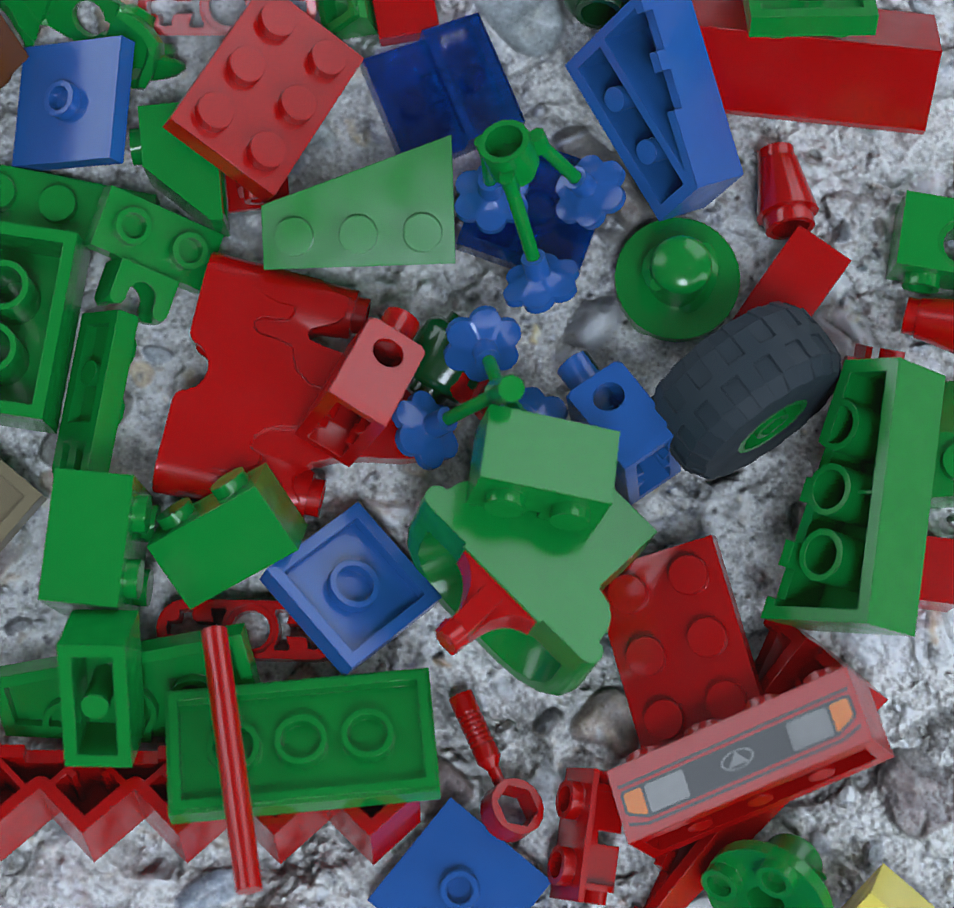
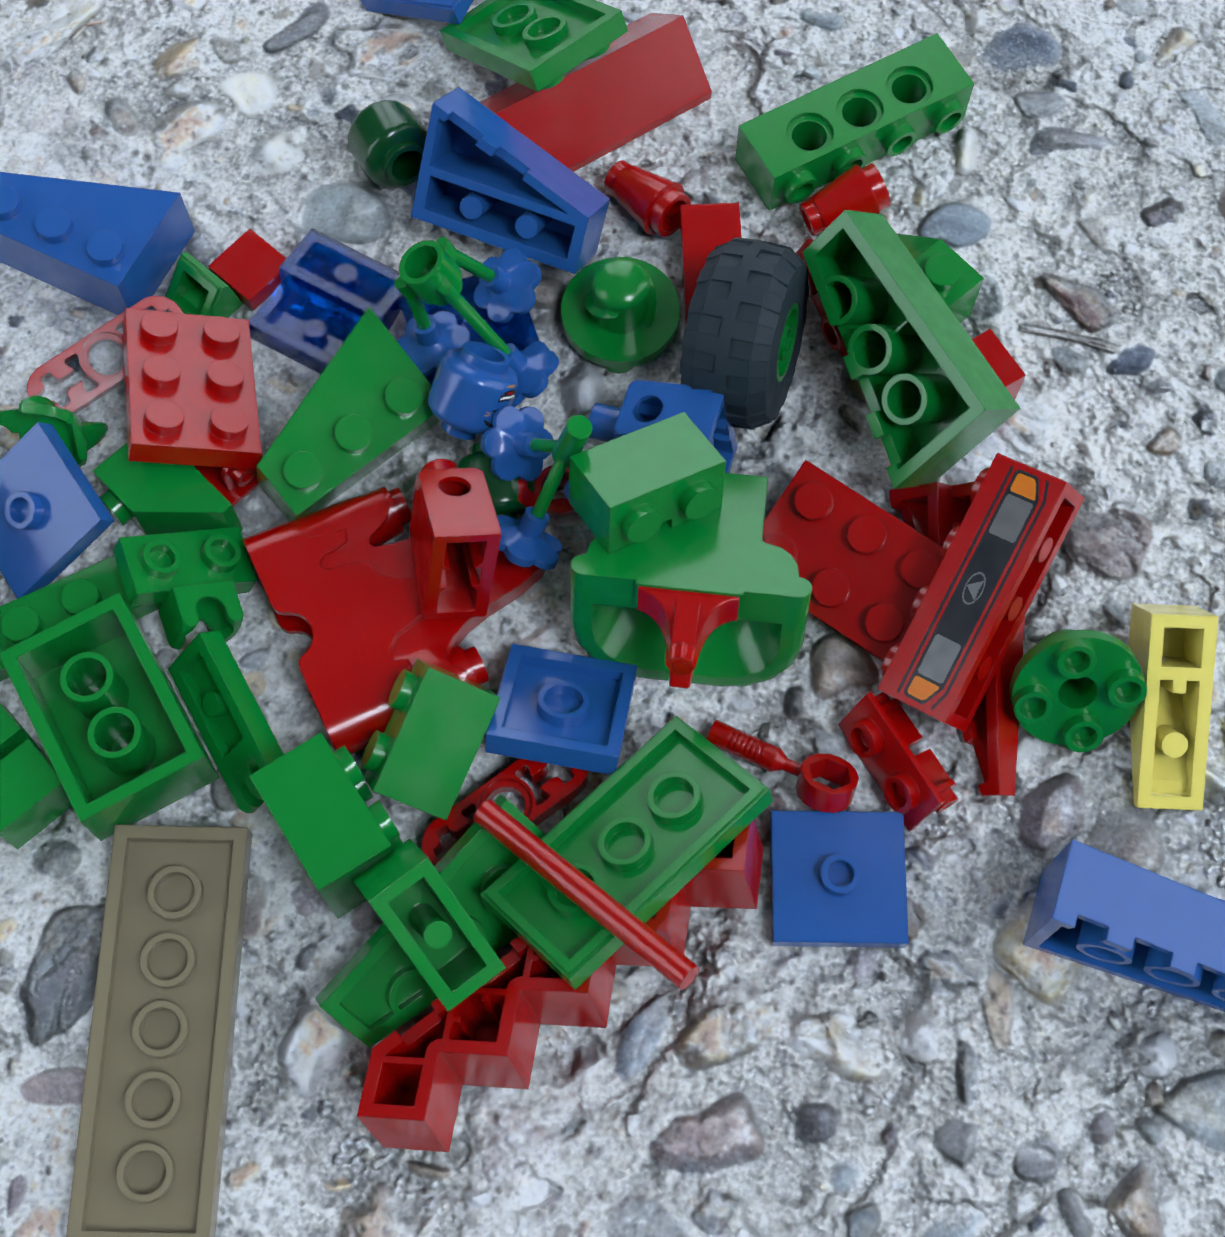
camera: 40 degrees left, 10 degrees down
(480, 269) = (471, 388): none -> blue head

